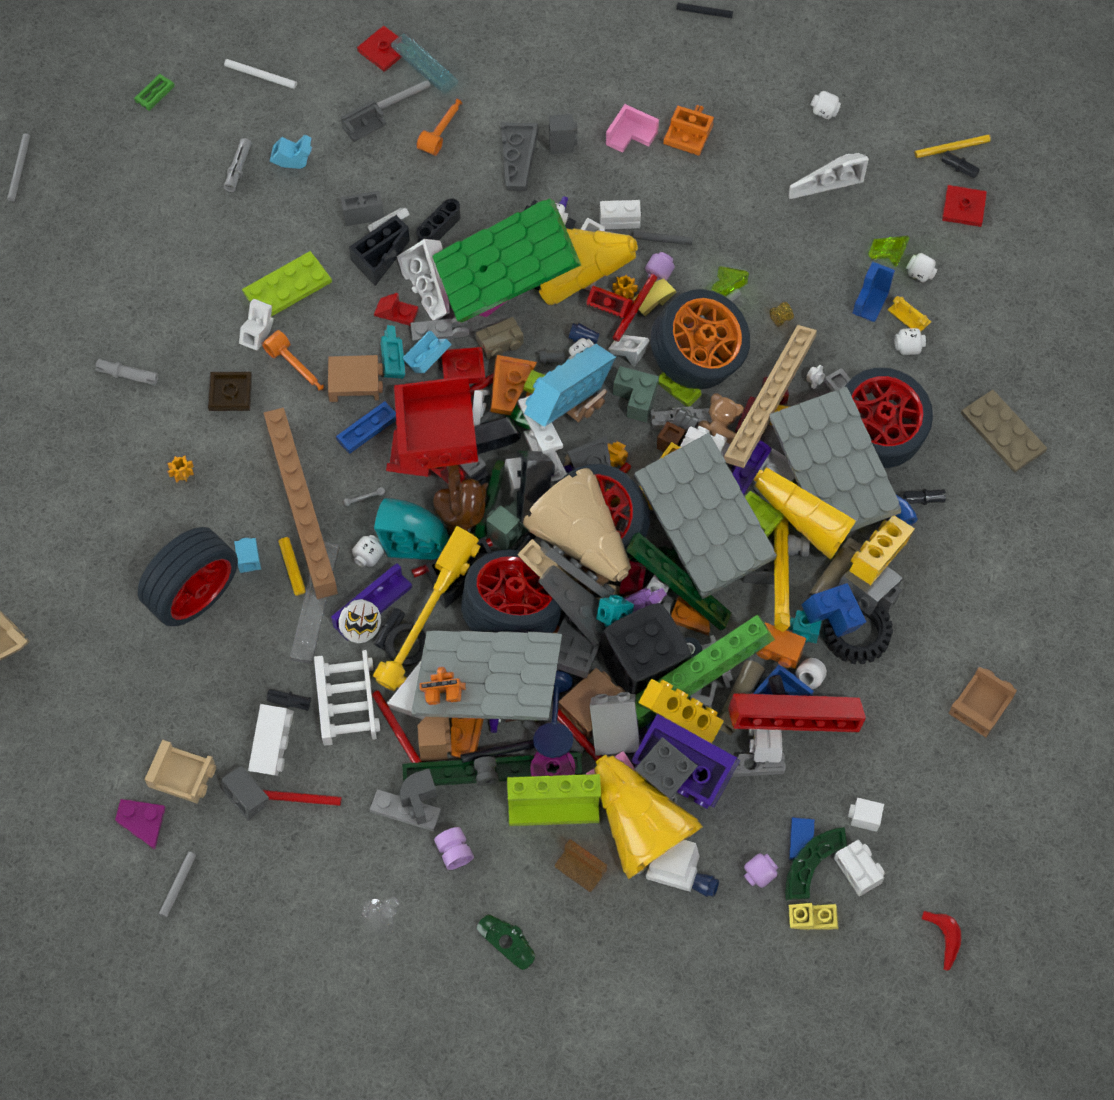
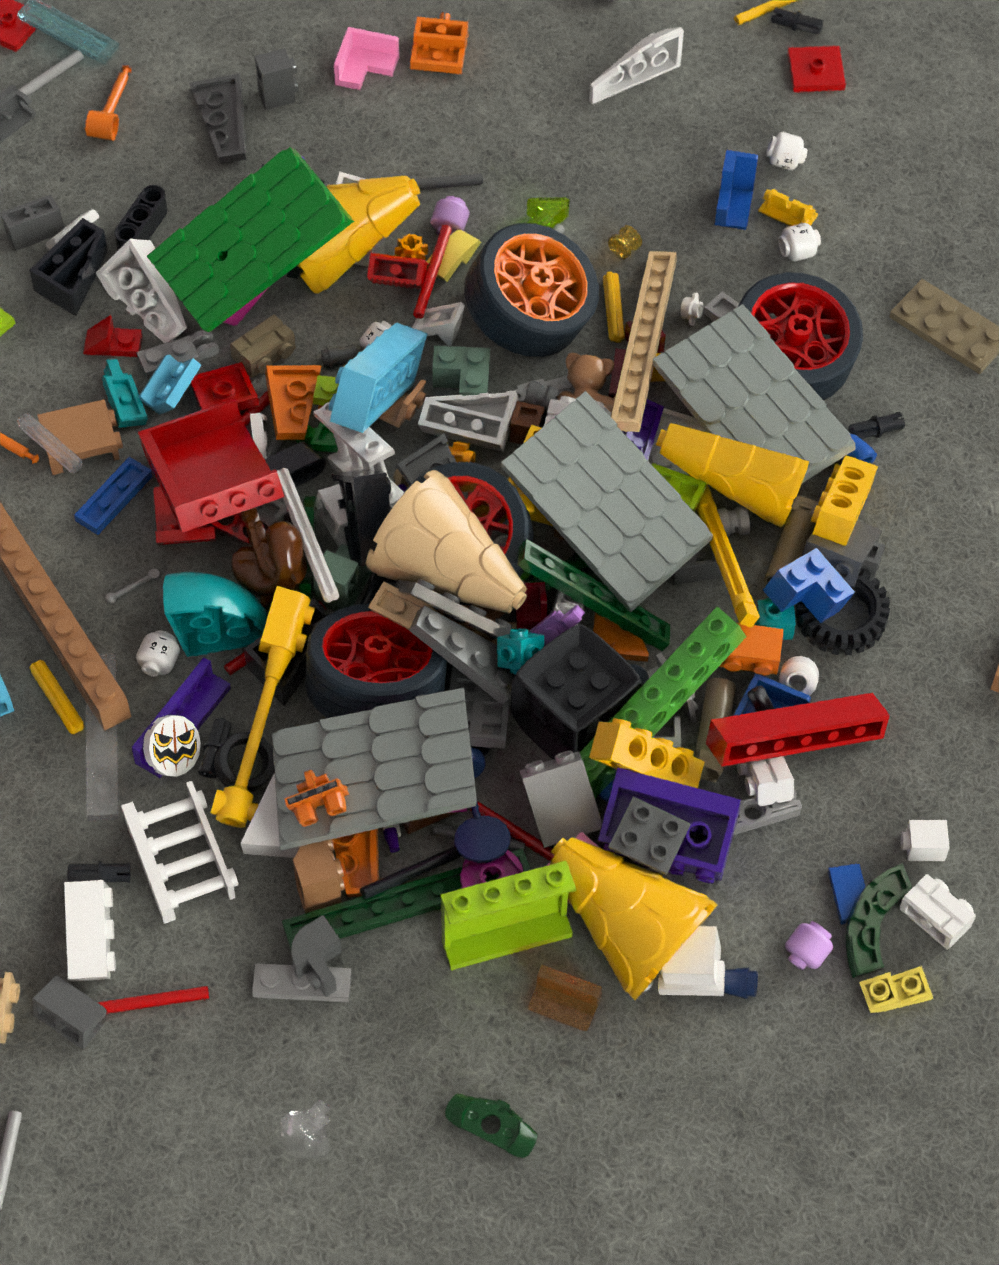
camera: 15 degrees left, 5 degrees down
(331, 380) = (50, 443): none -> clear axle
(396, 727) = (259, 876): red piece -> none
(452, 845) = (380, 1011): lavender wheel -> none
(486, 771) = (402, 902): dark grey wheel -> none
(488, 491) = (310, 544): none -> white axle
(577, 702) = (502, 783): medium nougat panel -> none
(580, 331) = (366, 315): dark blue cone -> none
(620, 214) = (380, 160): white brick -> none
(631, 426) = (470, 418): none -> white wedge
(683, 394) = (524, 366): lime slope -> none
(759, 362) = (613, 307): none -> yellow axle
(889, 248) = (739, 134): clear neon green slope -> none

